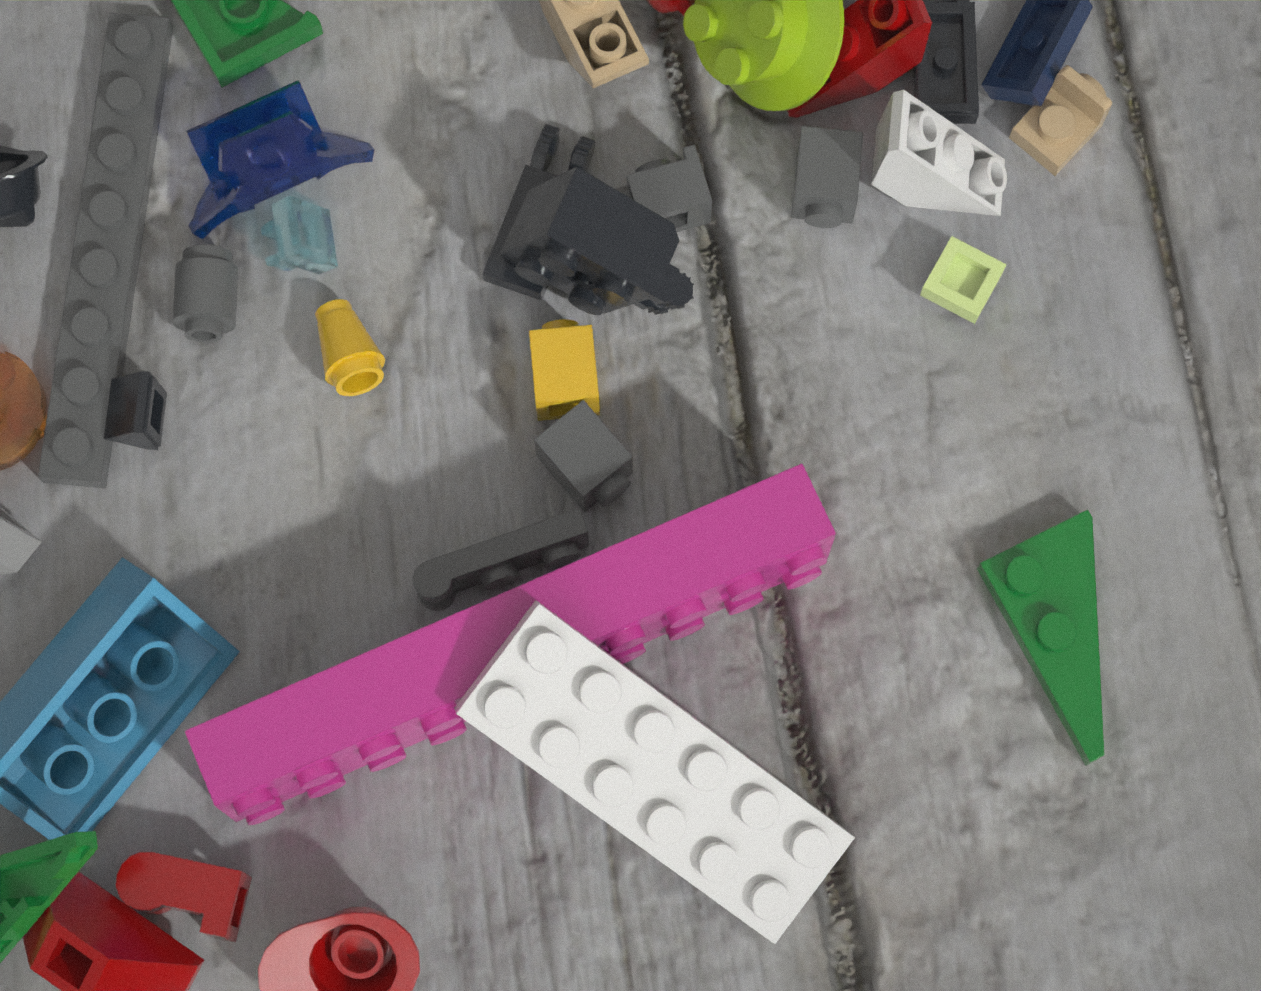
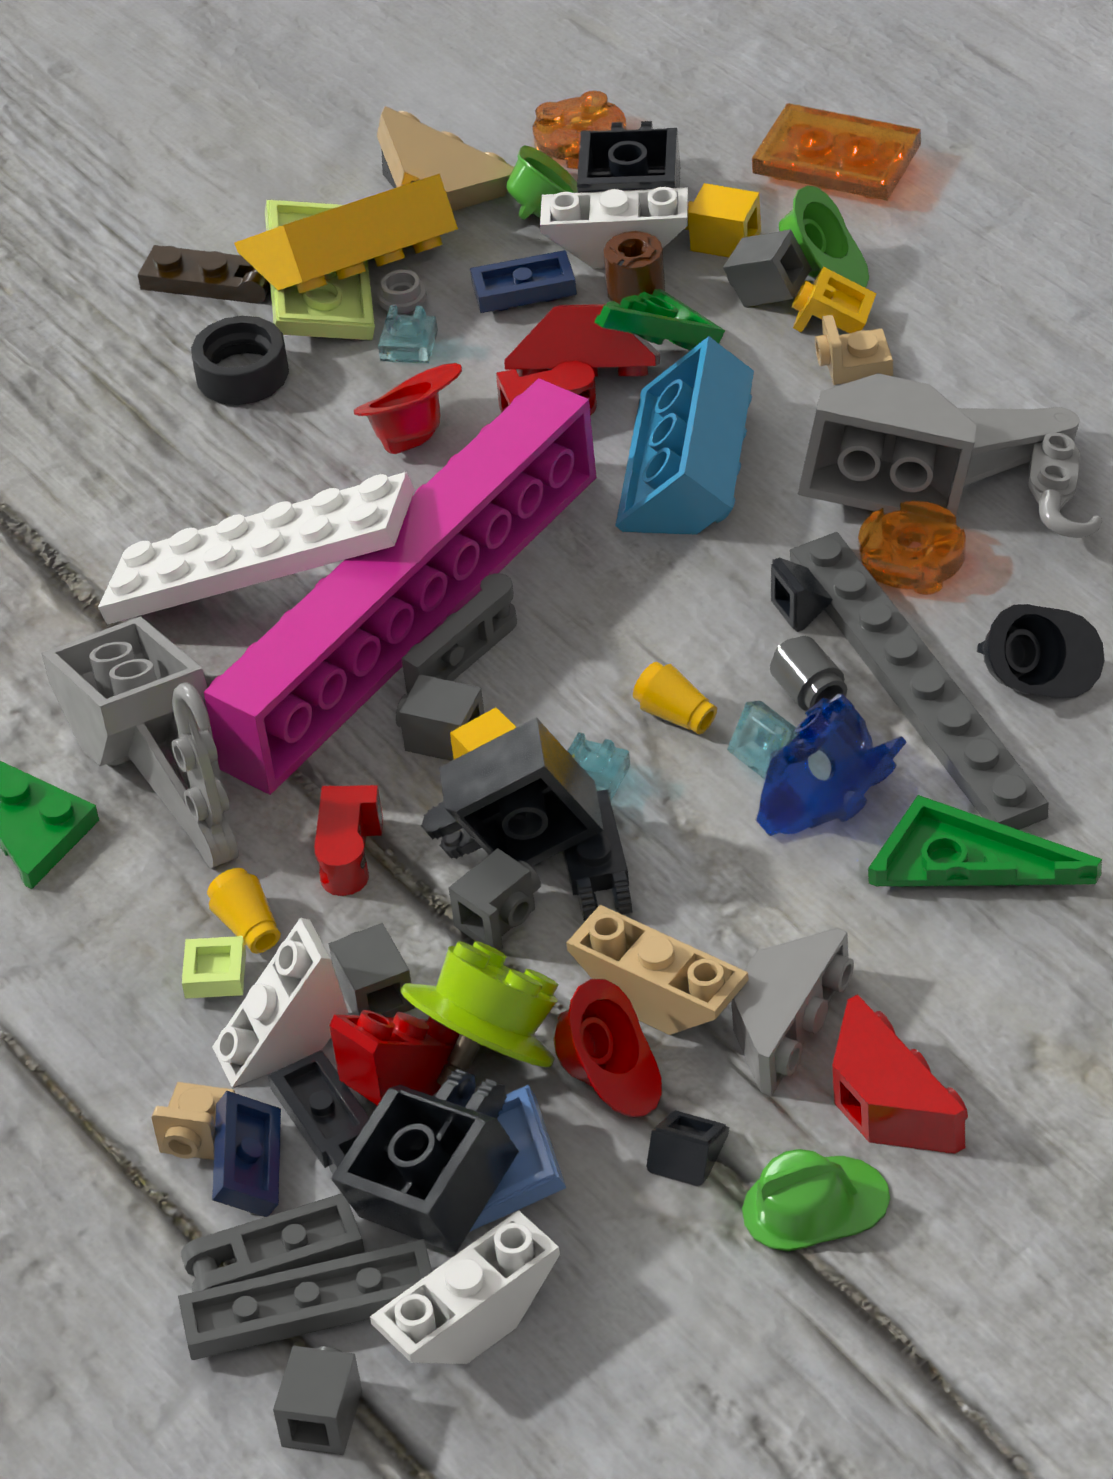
camera: 155 degrees right, 30 degrees down
(476, 318) = (602, 762): none -> clear light blue tile
(763, 366) = (343, 823): none -> red leg
(892, 624) = (139, 692): none -> light grey slope
(901, 334) = (243, 908): none -> yellow cone

